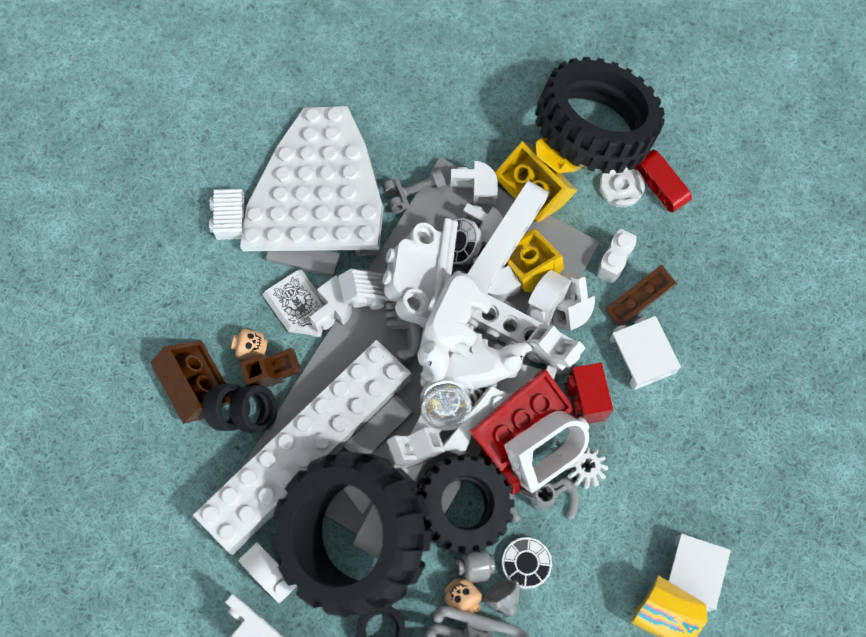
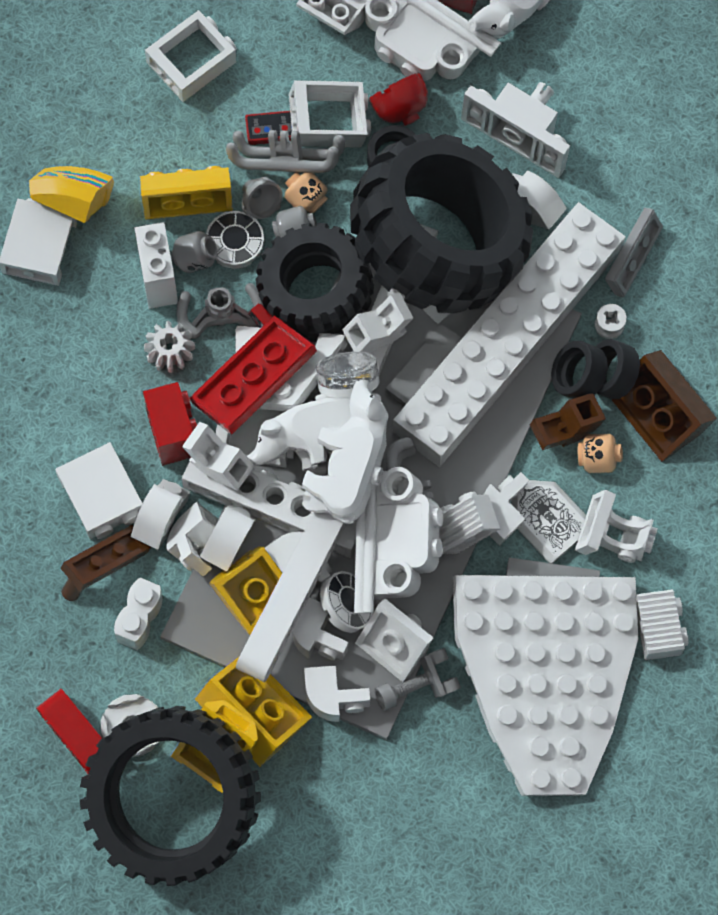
camera: 175 degrees right, 0 degrees up
(185, 516) = (634, 252): none -> light grey tile
(223, 459) = (607, 327): none -> white wheel
(235, 275) = (636, 531): none -> white tile
(427, 209) = (394, 639): none -> white tile
(562, 549) = (194, 252): none -> light grey head
(568, 607) = (186, 192): none -> yellow slope
(570, 452) = (218, 345): white window -> none
(598, 330) = (159, 512): none -> white brick
(598, 520) = (156, 265): none -> white window

